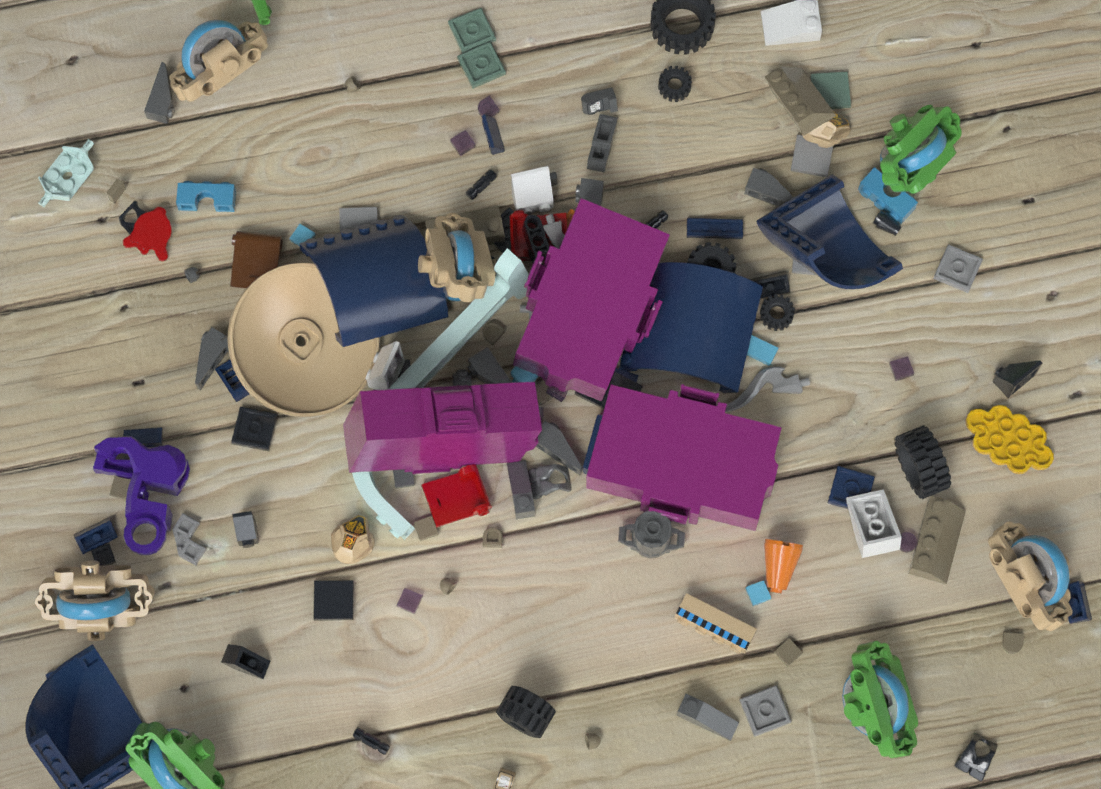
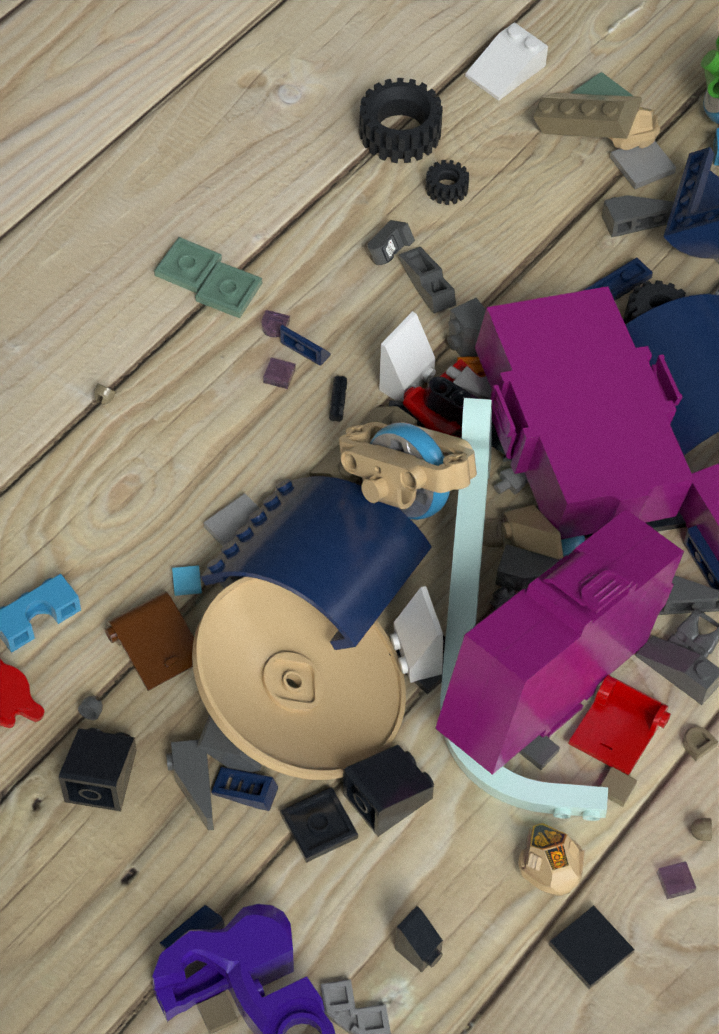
camera: 40 degrees left, 15 degrees down
(166, 312) = (98, 769): none -> black slope
(302, 436) = (386, 788): none -> black slope
(506, 348) = (532, 531): none -> tan slope

